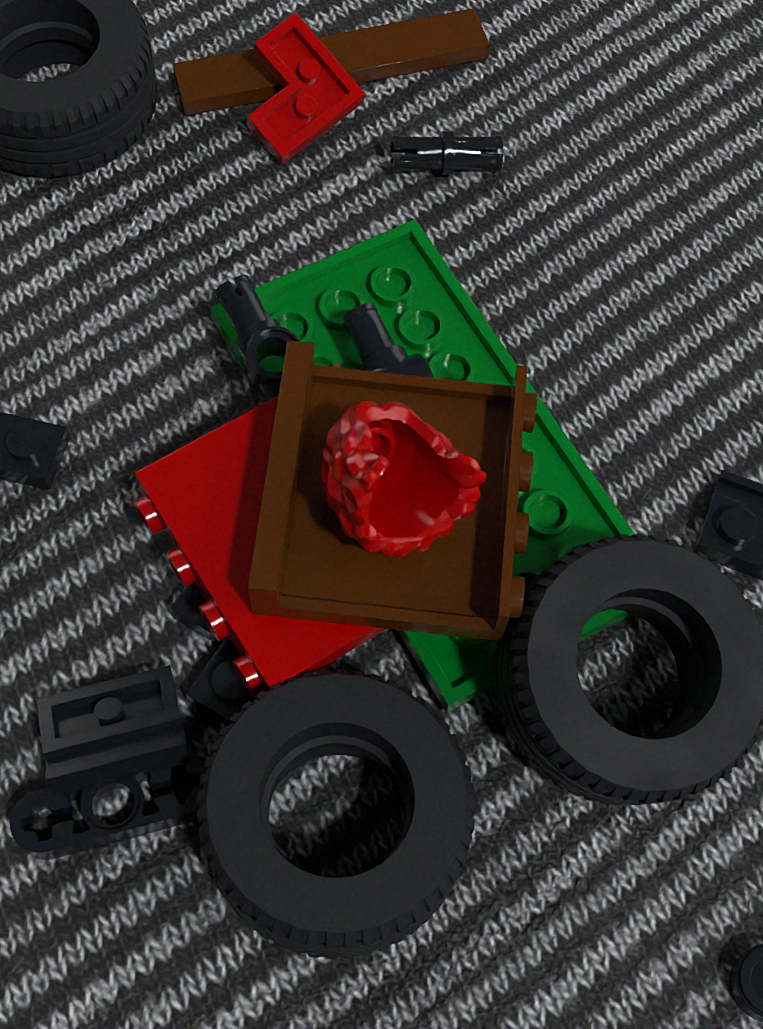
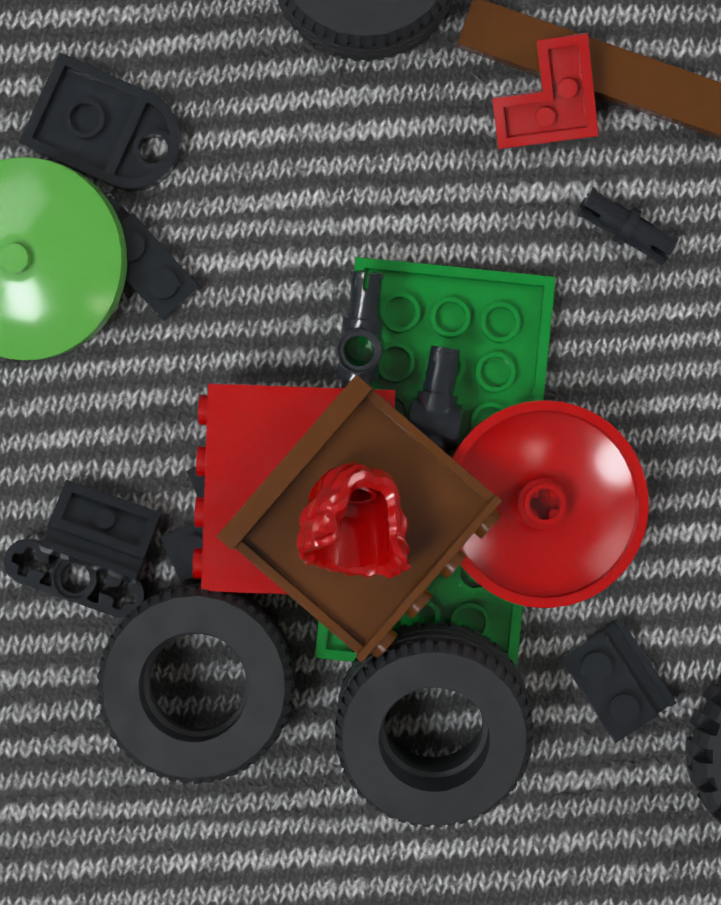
camera: 40 degrees right, 25 degrees up
(603, 374) = (567, 505): none -> red dish

